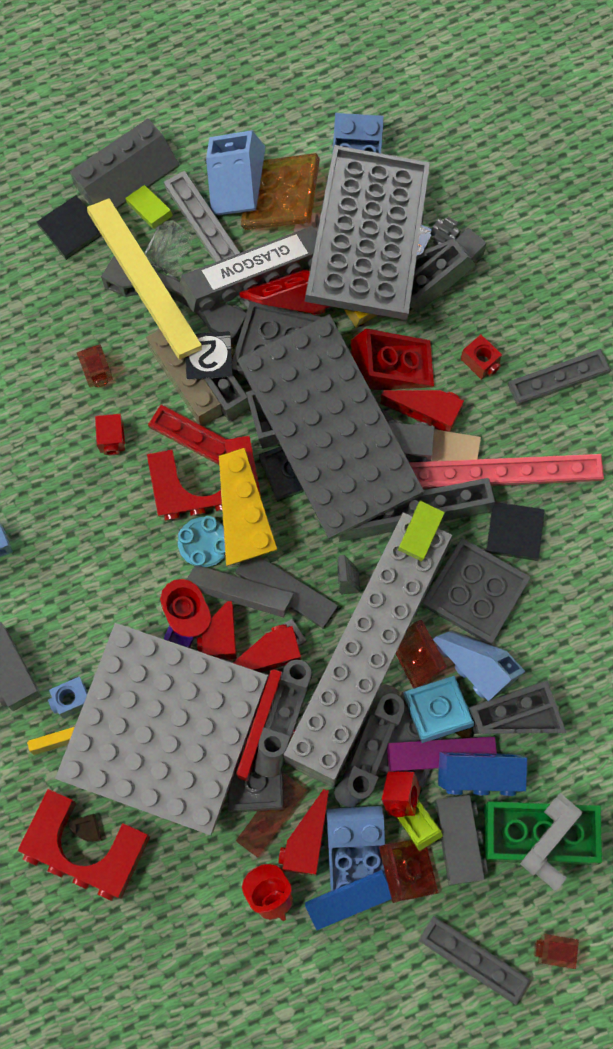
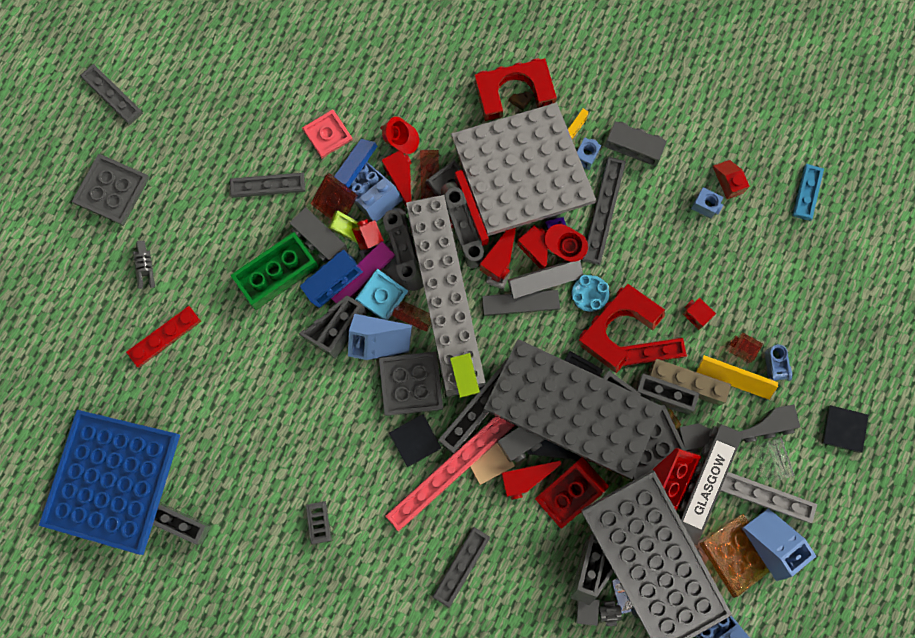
camera: 140 degrees right, 5 degrees up
(78, 324) = (778, 365): none -> medium blue piece
(99, 626) = (604, 210): none -> dark grey tile
(125, 166) = (849, 494): dark grey slope -> none
(130, 346) = (737, 377): none -> yellow tile
(144, 279) = (768, 421): light yellow tile -> none
(149, 207) = (810, 479): lime tile -> none
(213, 359) = (683, 400): sticker -> none
(244, 517) = (580, 319): yellow wedge -> none
(347, 576) = (491, 332): dark grey slope -> none
(352, 972) = (327, 133): none -> coral tile
(481, 347) = (527, 539): red brick -> none
(556, 951) = (225, 218): clear red brick -> none
(564, 816) = (266, 280): light grey beam -> none

